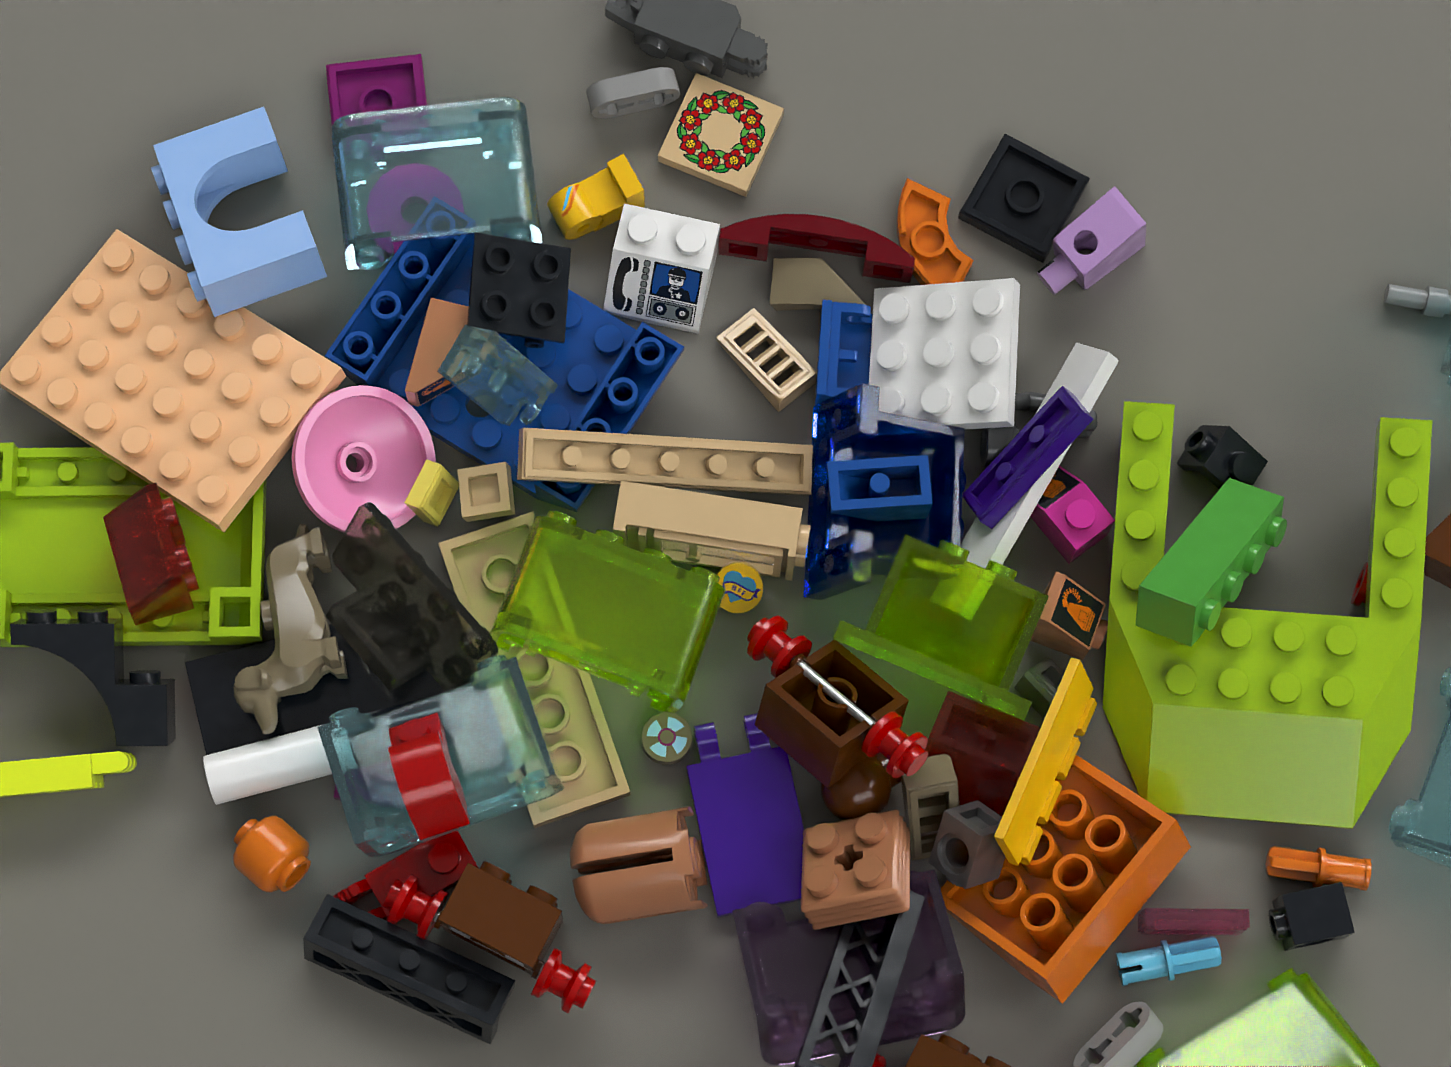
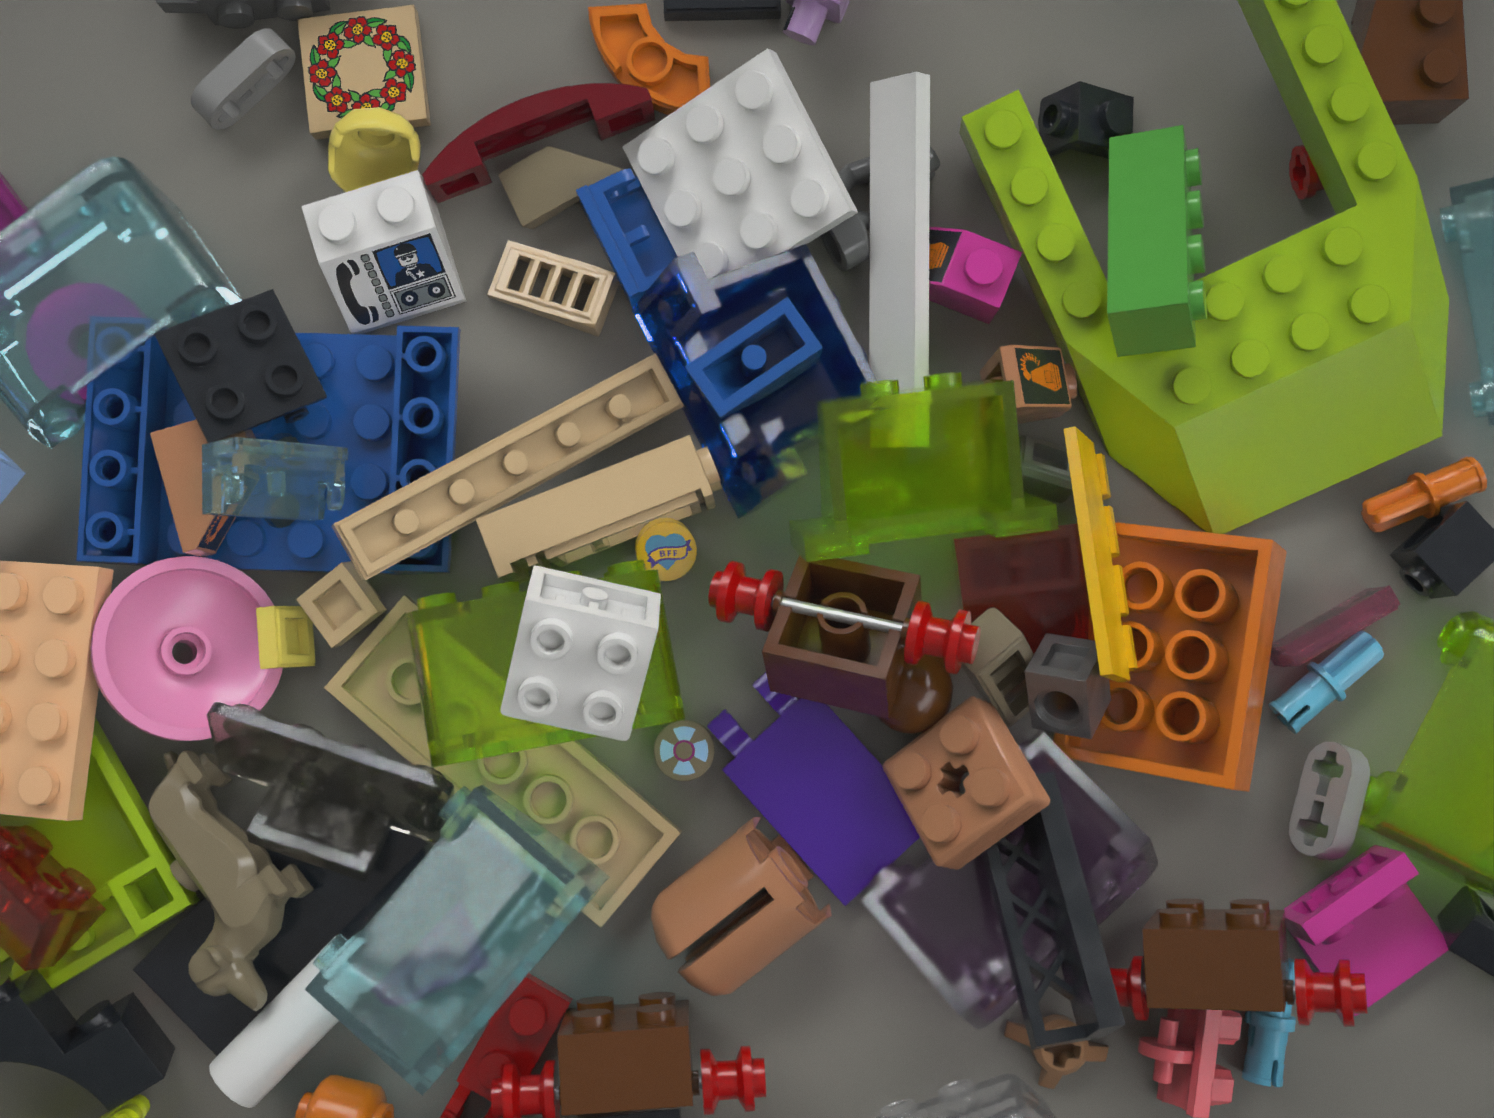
camera: 25 degrees left, 10 degrees up
(427, 776) = (454, 972): red brick -> none
(596, 199) = (272, 218): yellow leg -> none
(640, 609) = (581, 653): none -> white bracket
(695, 191) = (371, 148): none -> light yellow hair
(1027, 457) = (893, 236): dark purple tile -> none

